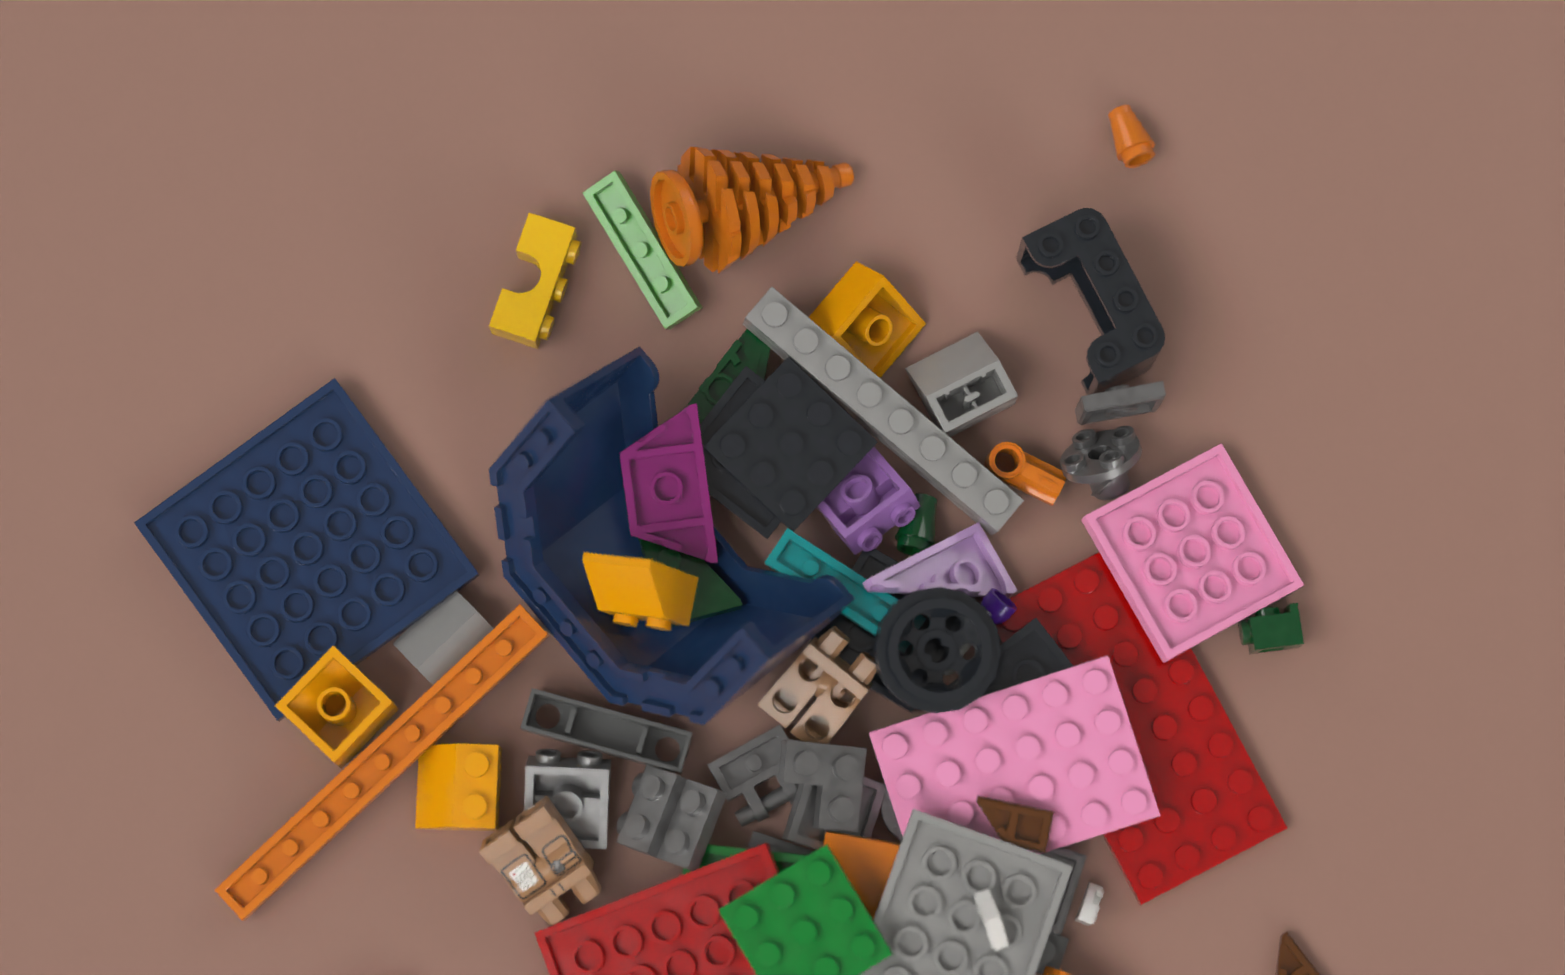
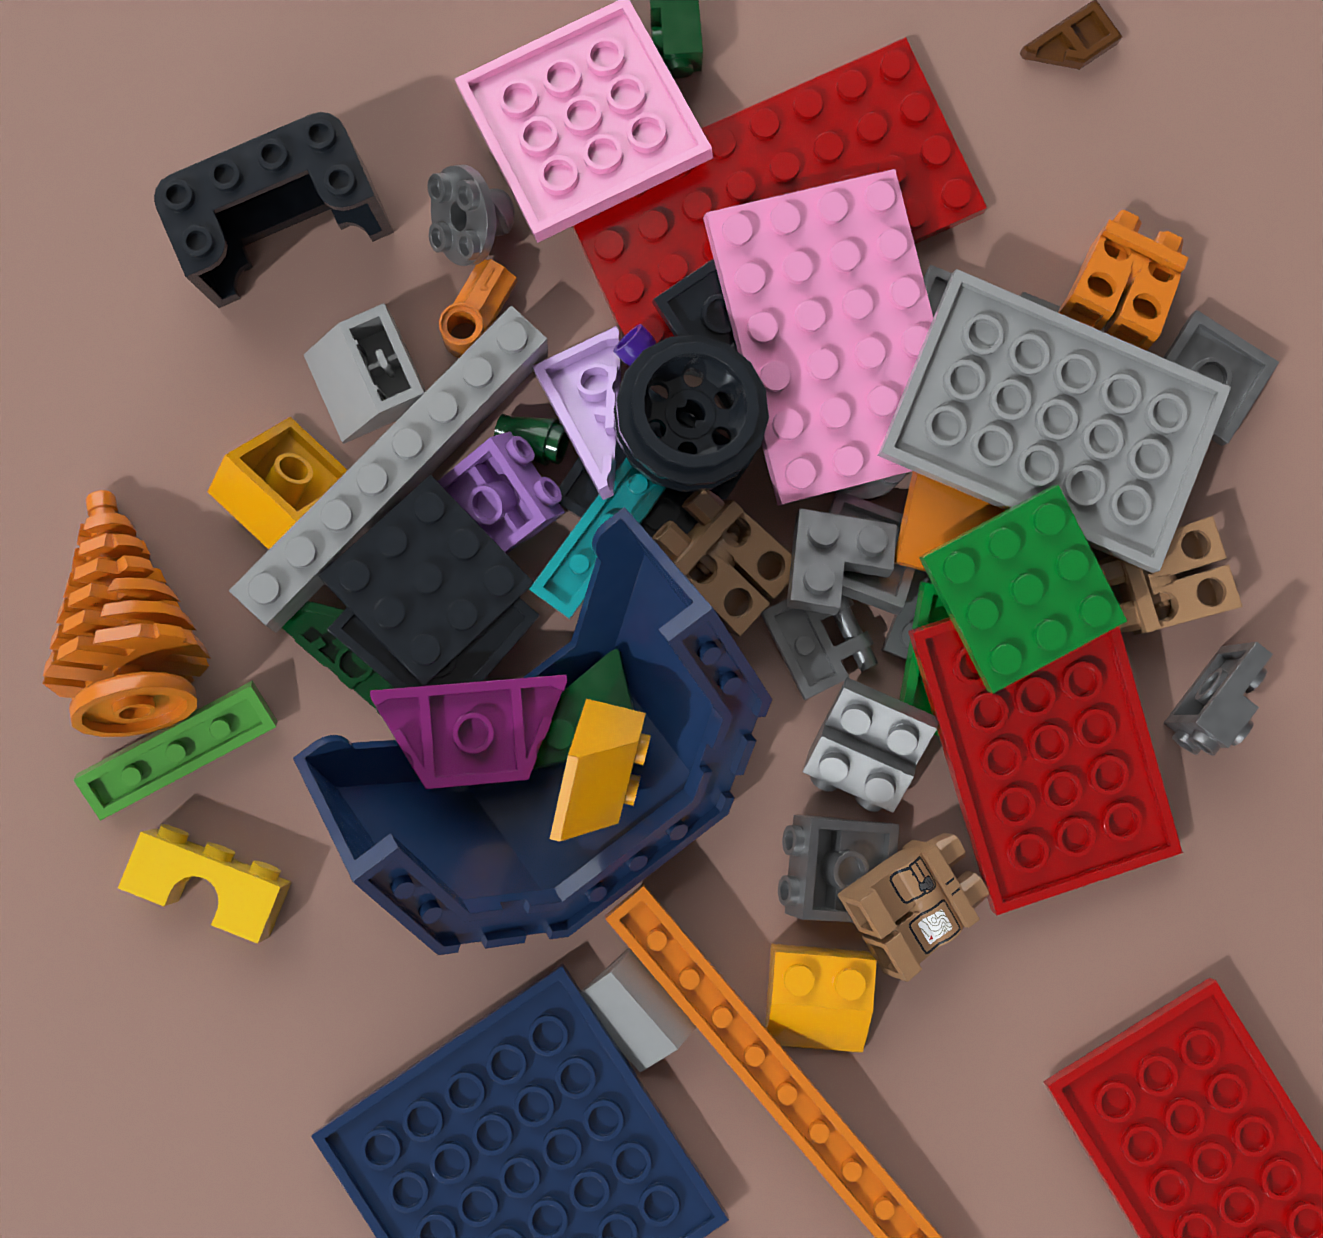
camera: 90 degrees left, 5 degrees up
(337, 707) = (718, 1148): light orange slope -> none
(606, 731) = (761, 819): dark grey piece -> none
(991, 919) = (1024, 361): white tile -> none
(1018, 823) = (899, 331): reddish brown tile -> none
(1089, 906) = (991, 269): white tile -> none
(1119, 402) = (398, 186): flat silver plate -> none
(1130, 137) = (79, 161): orange cone -> none

